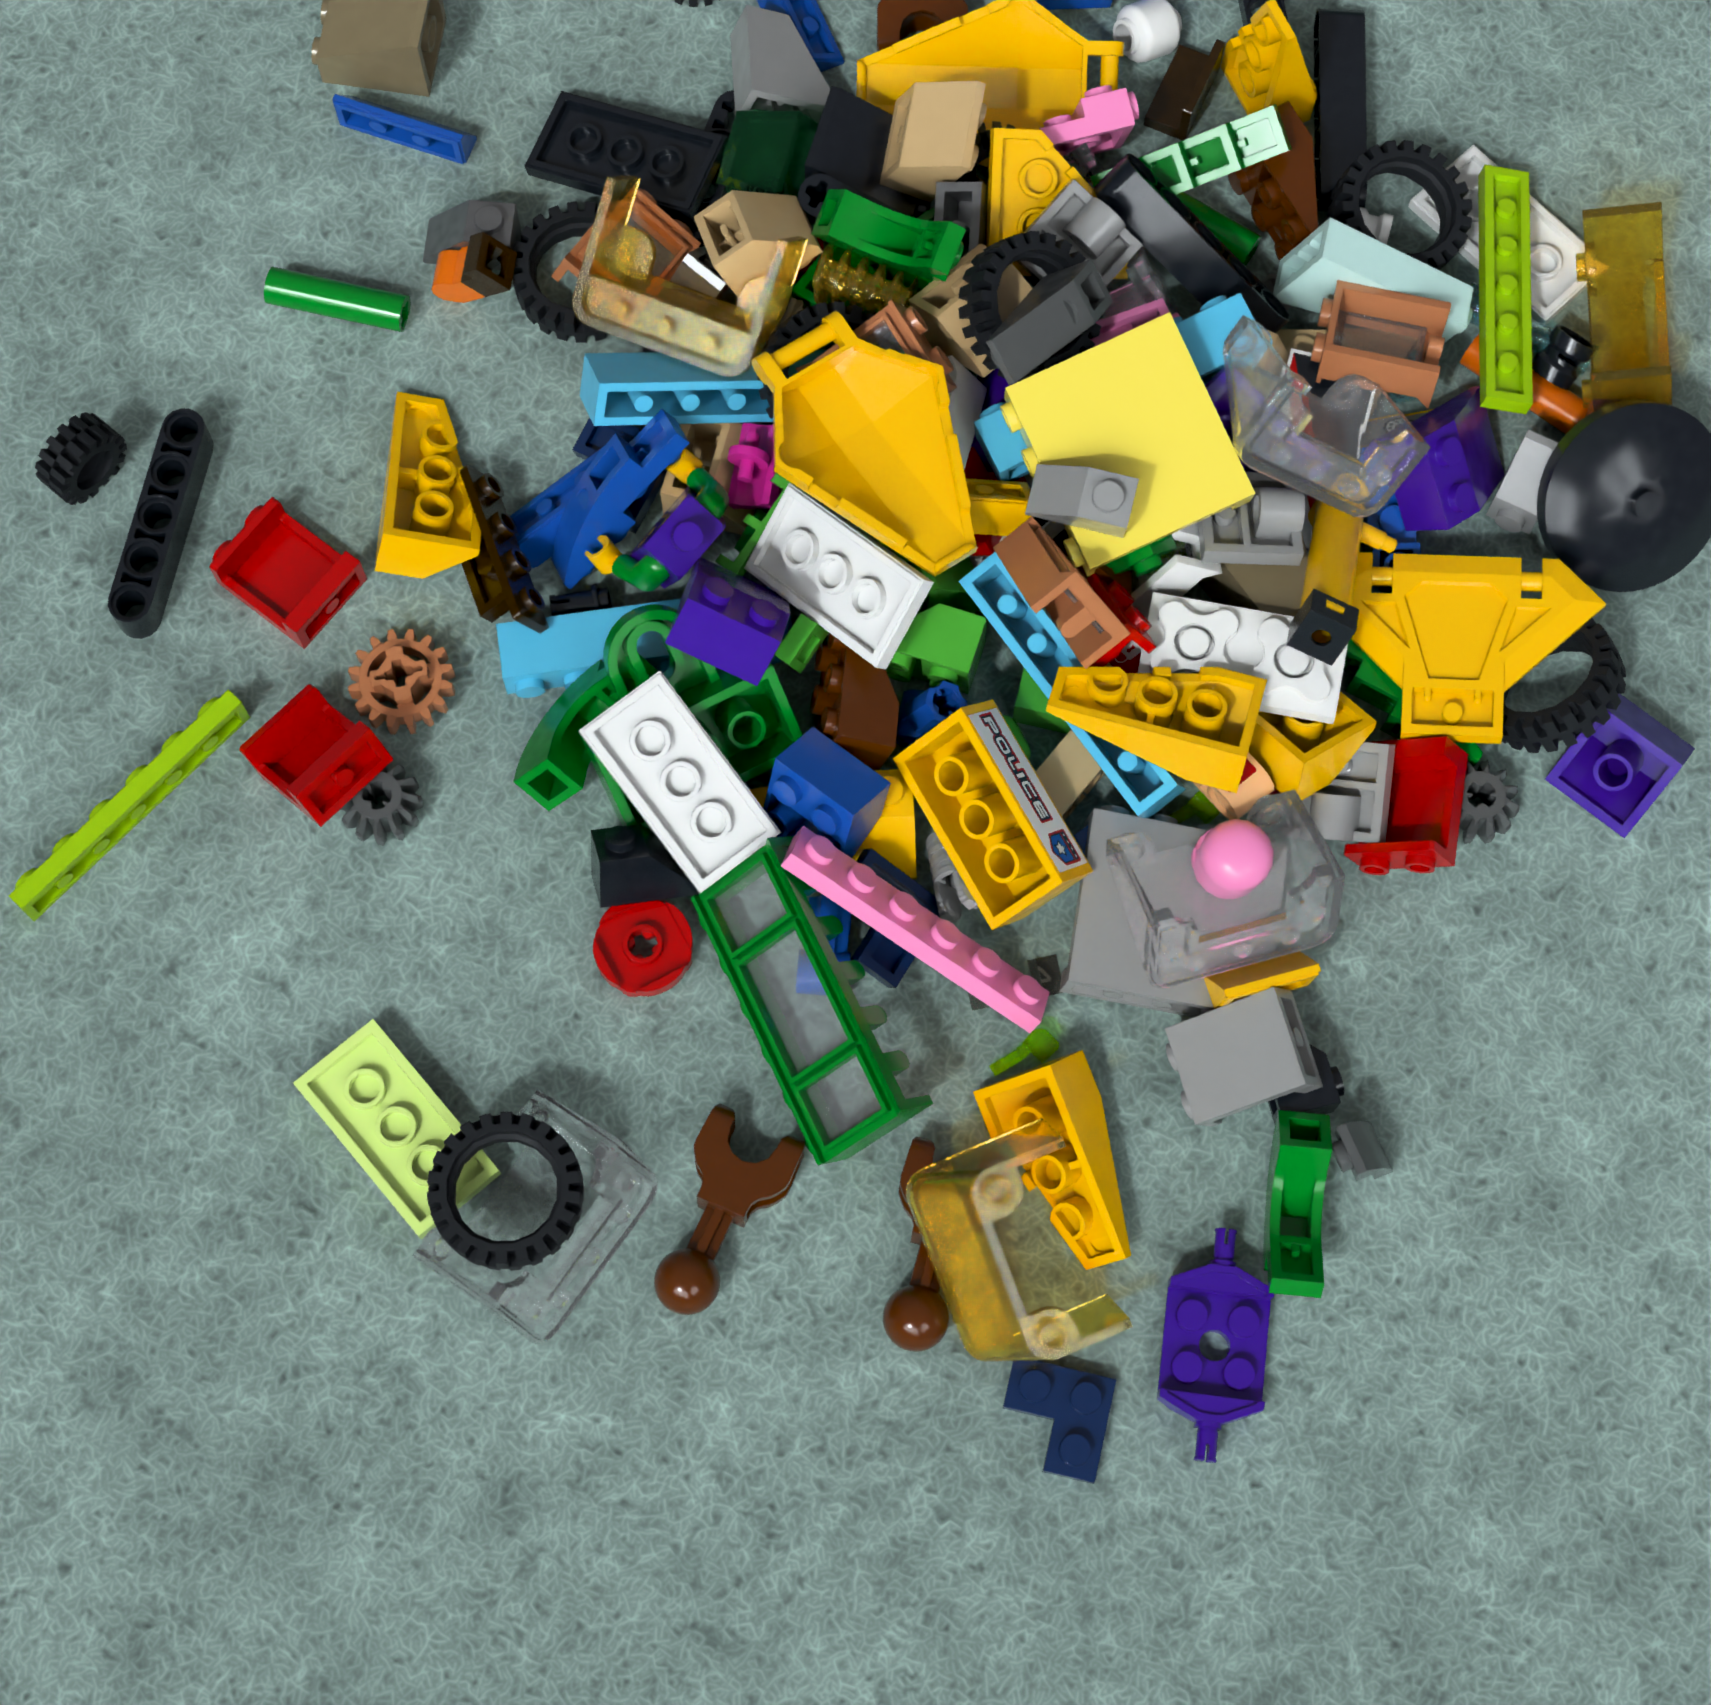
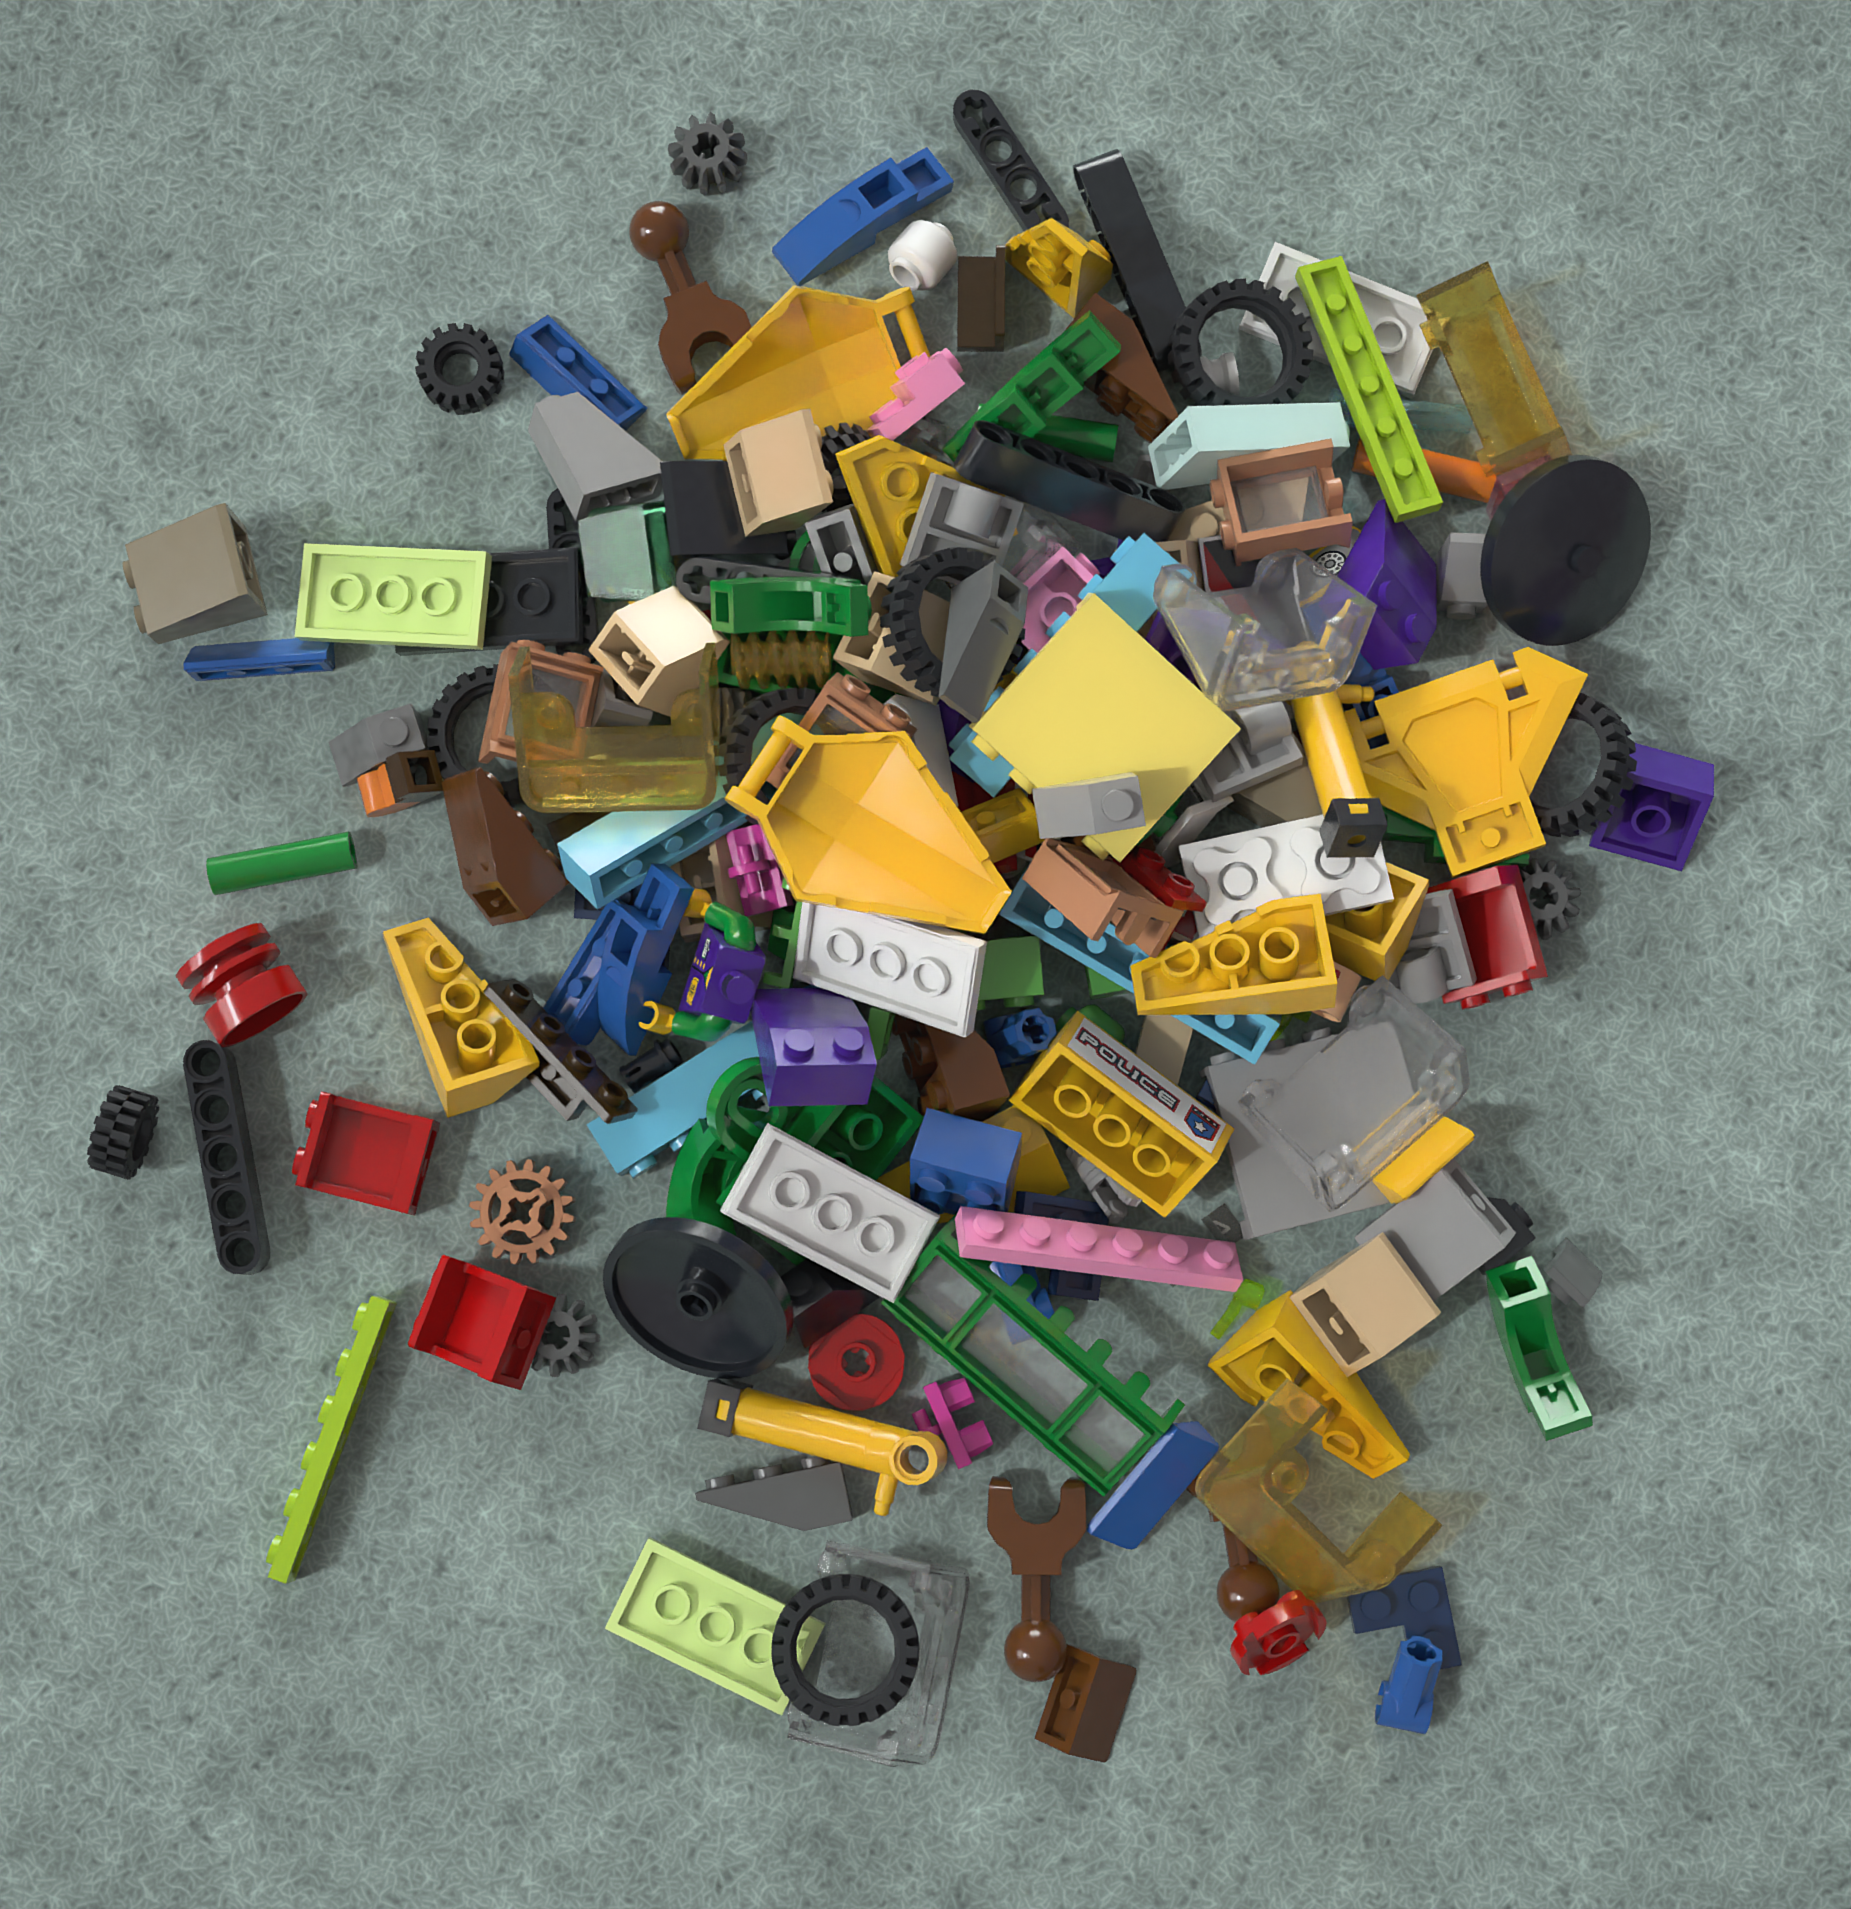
camera: 20 degrees left, 10 degrees up
(248, 376) = (237, 977): none -> red wheel
(522, 810) = (698, 1298): none -> black dish
(530, 1043) = (796, 1499): none -> dark grey slope
(531, 357) = (495, 850): none -> reddish brown slope
(545, 114) = (393, 596): none -> yellowish green plate
(581, 991) = (740, 1410): none -> yellow piece
(708, 1015) = (944, 1400): none -> dark pink hips
(713, 1358) = (1086, 1705): none -> reddish brown panel
(868, 1171) = (1154, 1485): none -> blue slope
(945, 1352) = (1277, 1634): none -> red plate
(1029, 1483) = (1409, 1691): none -> blue piece
(1147, 1090) = (1364, 1304): none -> tan slope
(1223, 1302) = (1542, 1529): dark purple plate -> none
(1232, 858) = (1355, 1064): bright pink helmet -> none
(1563, 357) = (1447, 432): black wheel -> none

